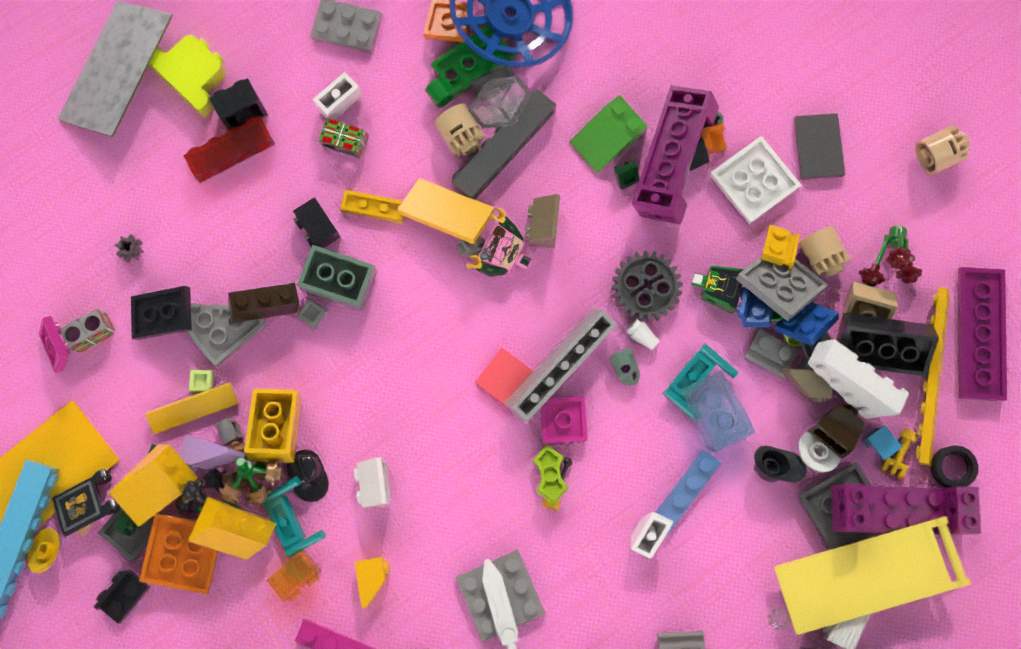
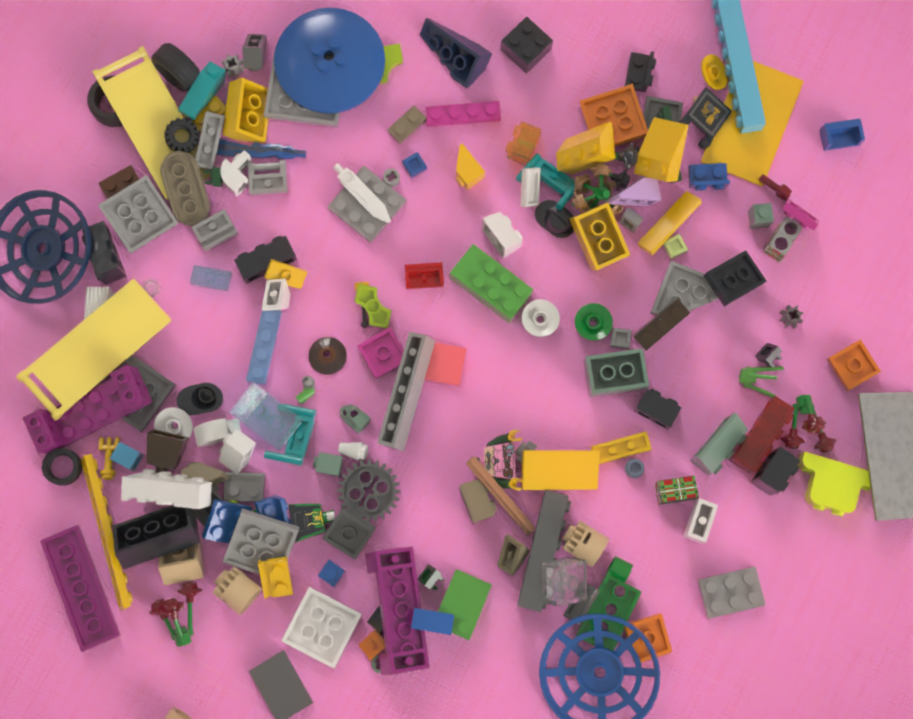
camera: 145 degrees right, 0 degrees up
(56, 381) = (782, 191): none -> dark red bar
(94, 365) = (760, 216): none -> sand green brick
(99, 171) = (853, 365): none -> orange plate
(121, 437) = (708, 176): none -> blue bracket
(174, 125) = (812, 425): none -> dark red plant
(174, 223) = (768, 354): none -> tile
(208, 212) = (748, 375): none -> bright green plant
(276, 159) = (720, 445): none -> sand green slope
(315, 519) = (530, 187): none -> white tile
(320, 338) = (598, 314): none -> green dish
(372, 180) = (634, 468): none -> sand blue plate
(374, 366) = (542, 309): none -> white dish
(413, 435) = (491, 283): none -> bright green brick
(425, 614) = (414, 164): none -> blue tile
(459, 619) = (387, 173): none -> light grey bush
(479, 481) = (424, 275): none -> red hinge
(518, 215) = (500, 495): none -> nougat axle
(536, 155) = (512, 555): none -> dark tan slope
(620, 552) = (293, 275): none -> yellow plate
(622, 460) = (331, 364): none -> dish
(641, 587) = (255, 263): none -> black brick
(648, 123) = (432, 621): none -> blue slope
(660, 419) = (308, 389): none -> arm
(675, 332) = (328, 464): none -> sand green brick
(686, 253) = (349, 532): none -> dark grey plate
(709, 597) = (210, 278): none -> clear light blue plate
(721, 227) = (331, 573): none -> blue plate
(765, 388) = (236, 451): none -> white brick
(776, 420) = (215, 431): none -> white brick

